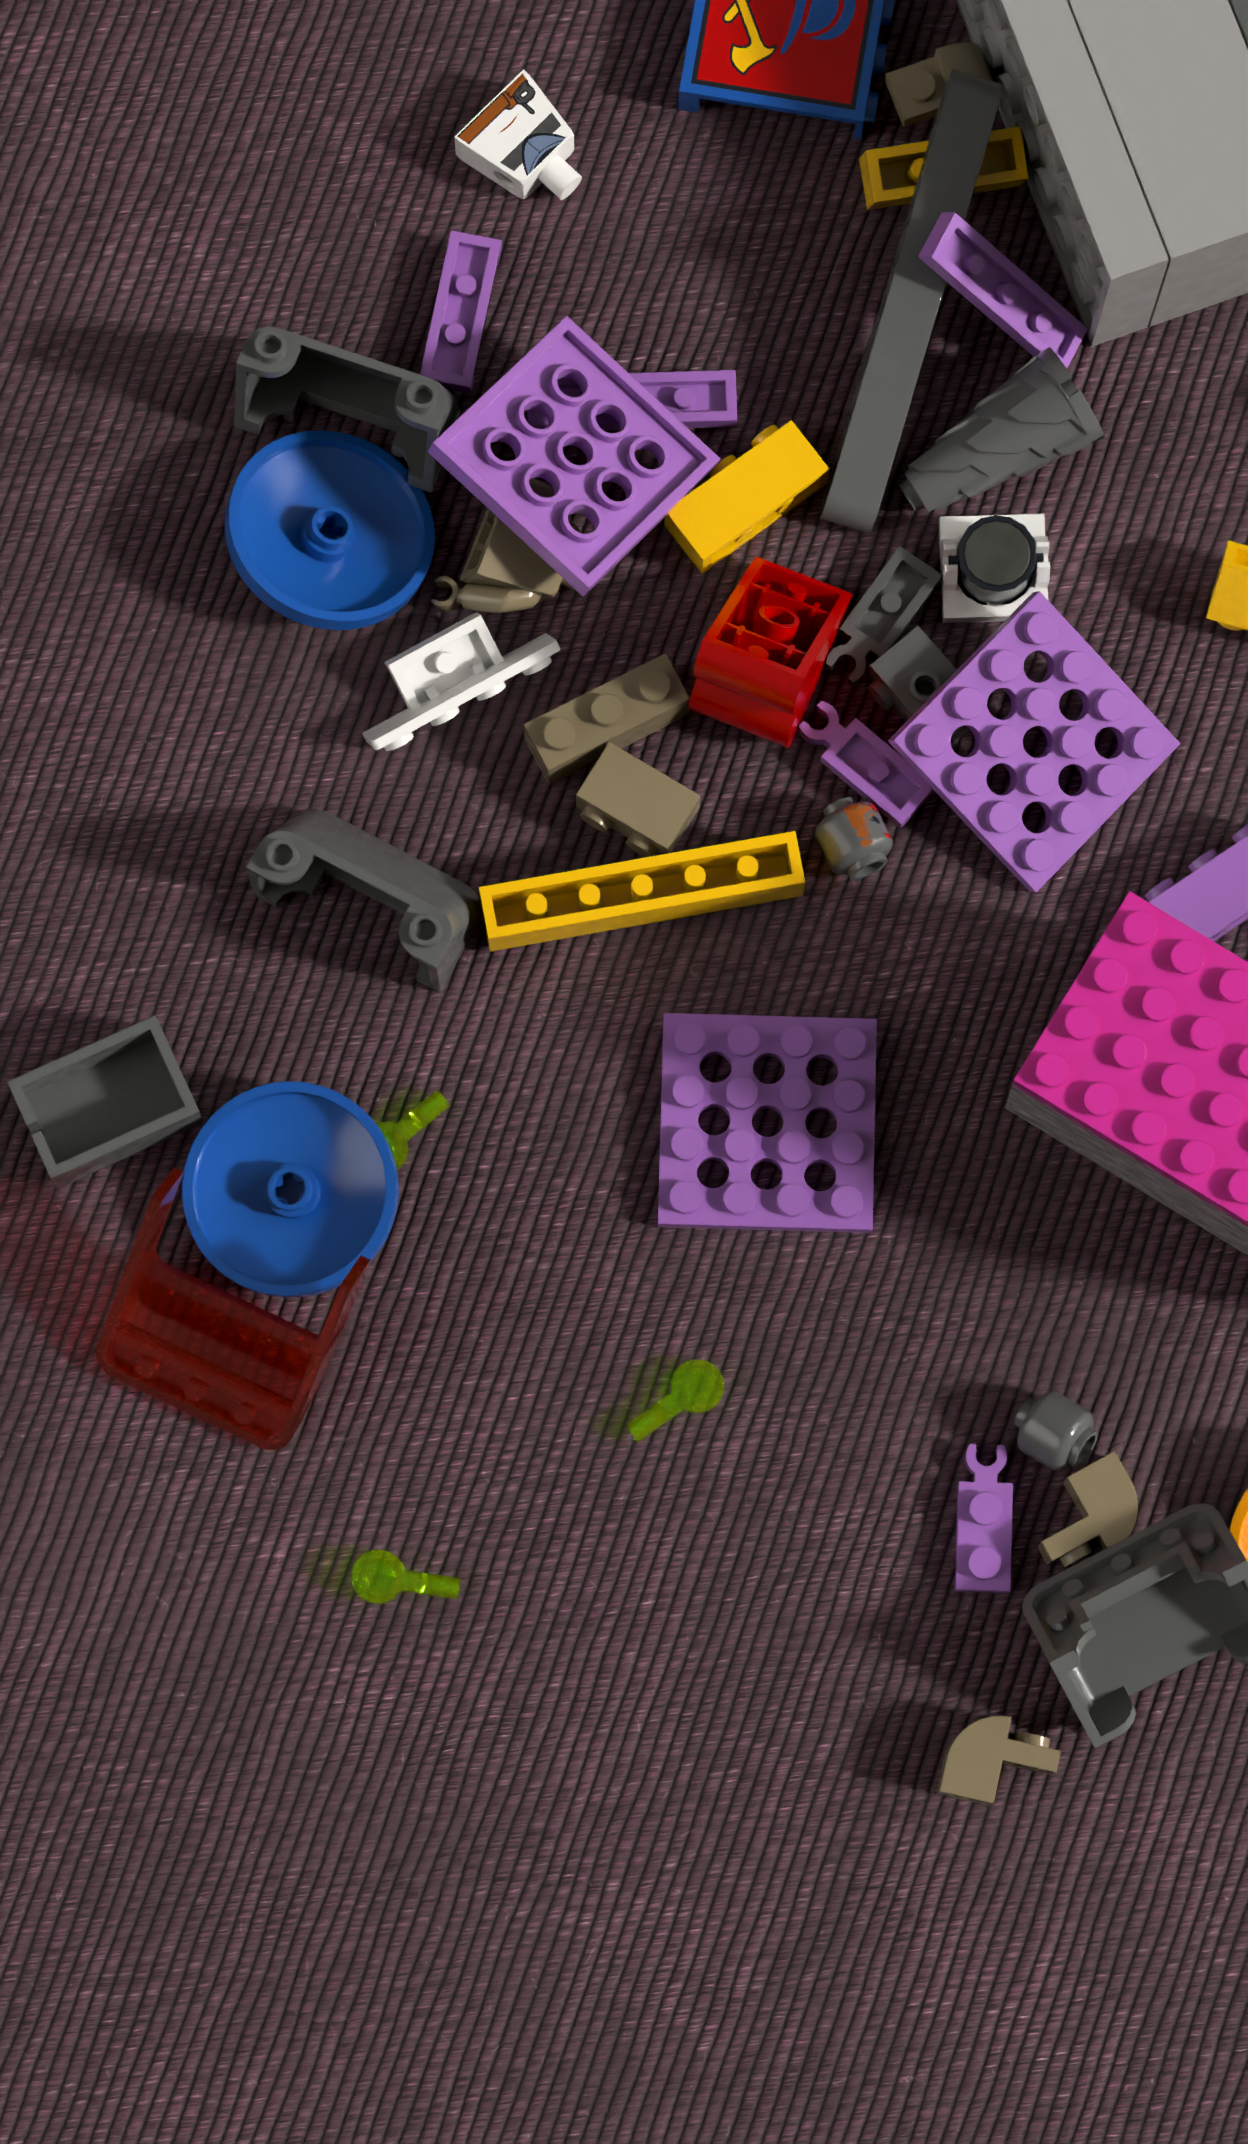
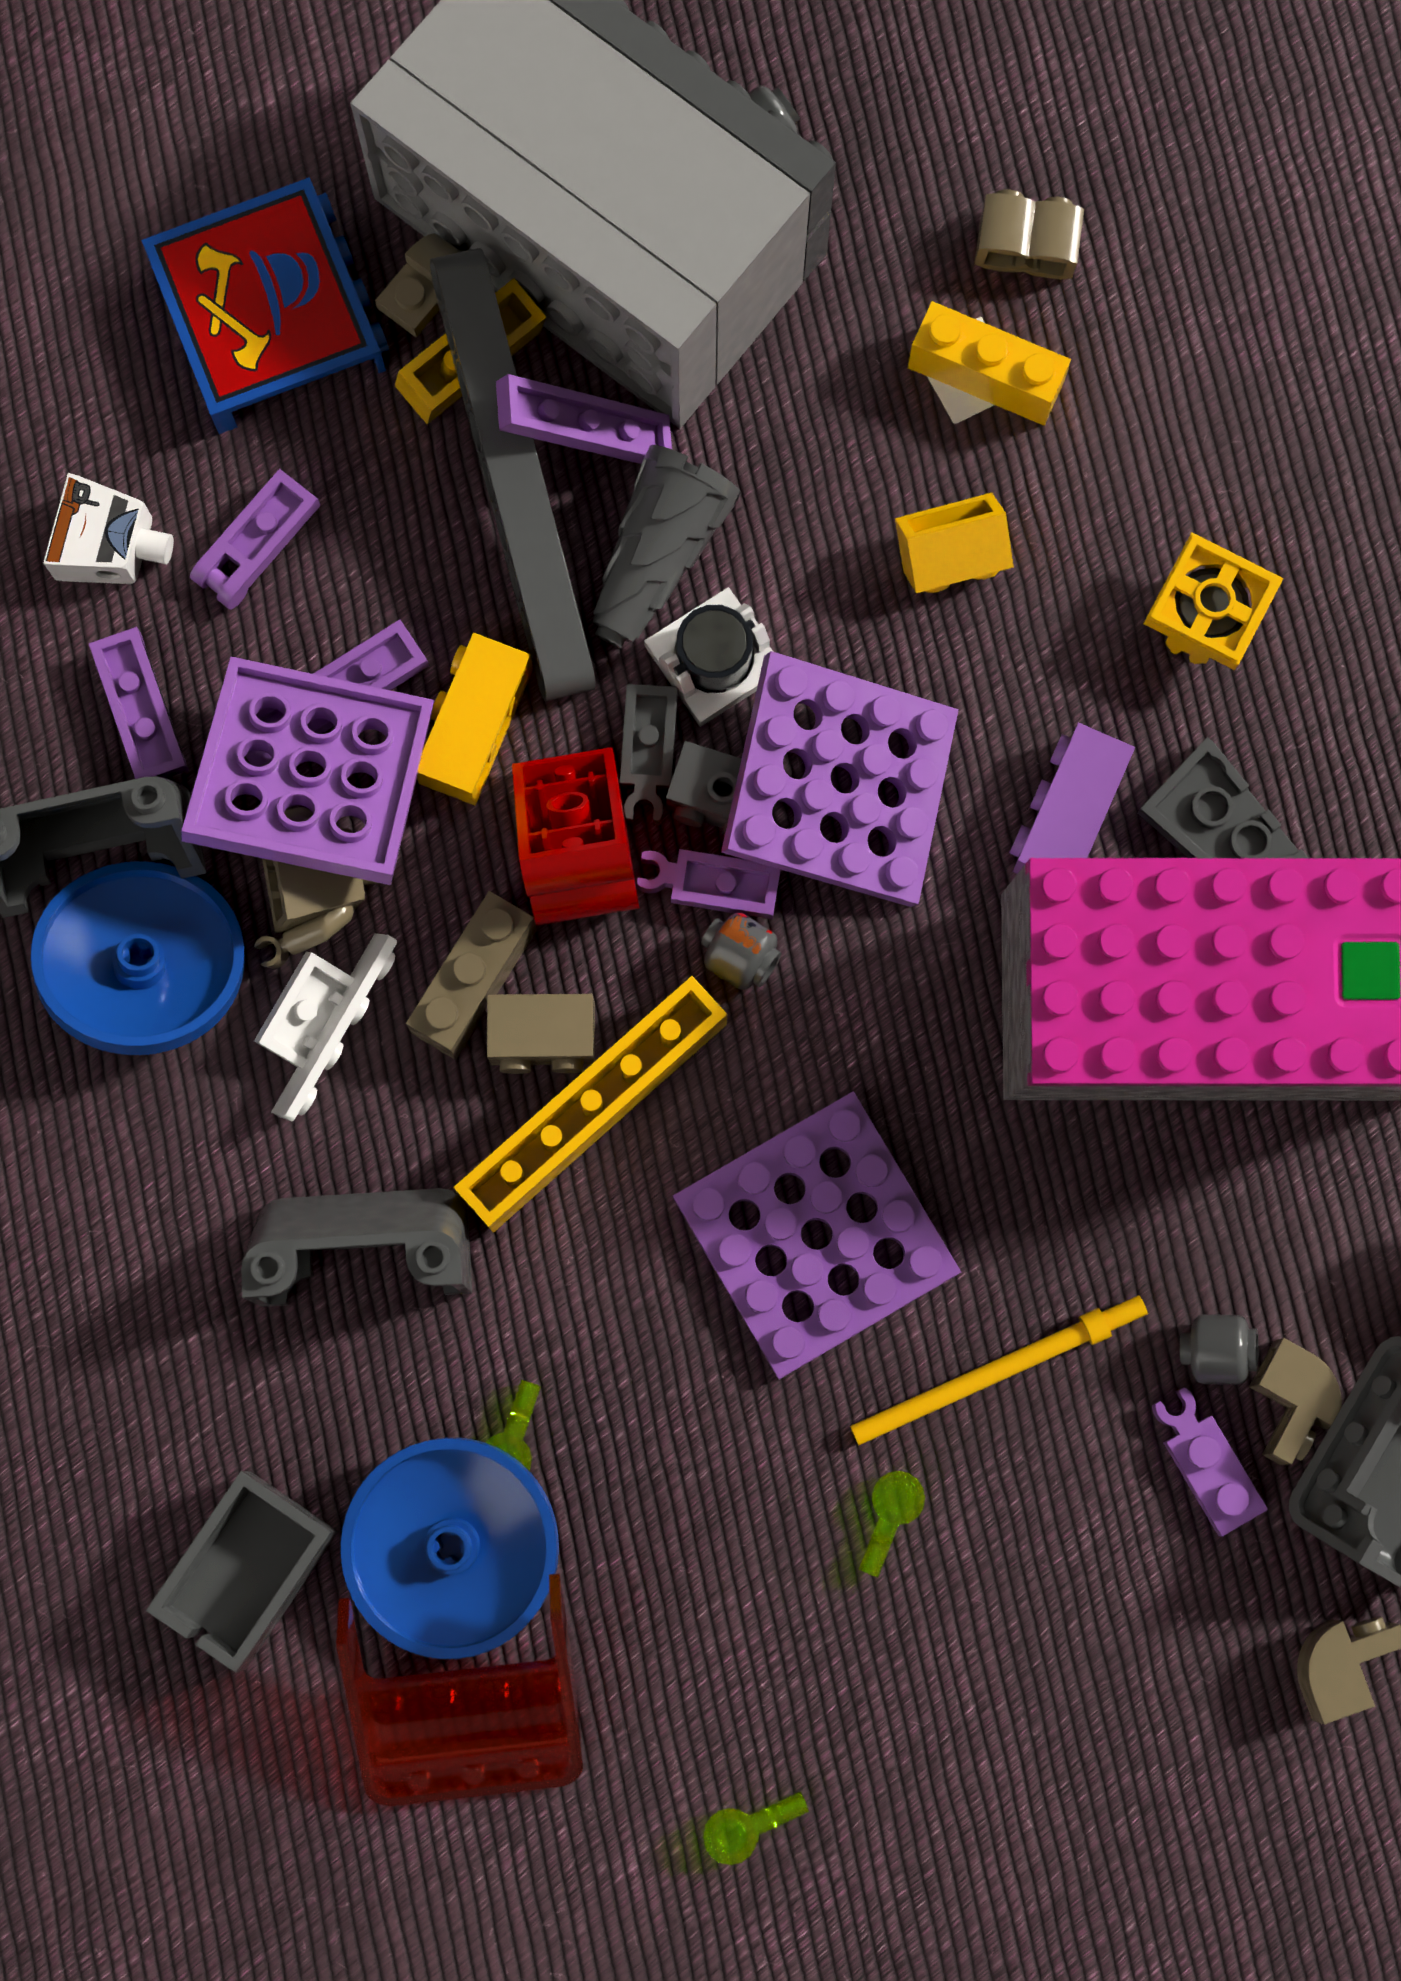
camera: 30 degrees left, 0 degrees up
(653, 222) = (255, 538): none -> medium lavender plate
(958, 1346) = (1093, 1327): none -> yellow bar

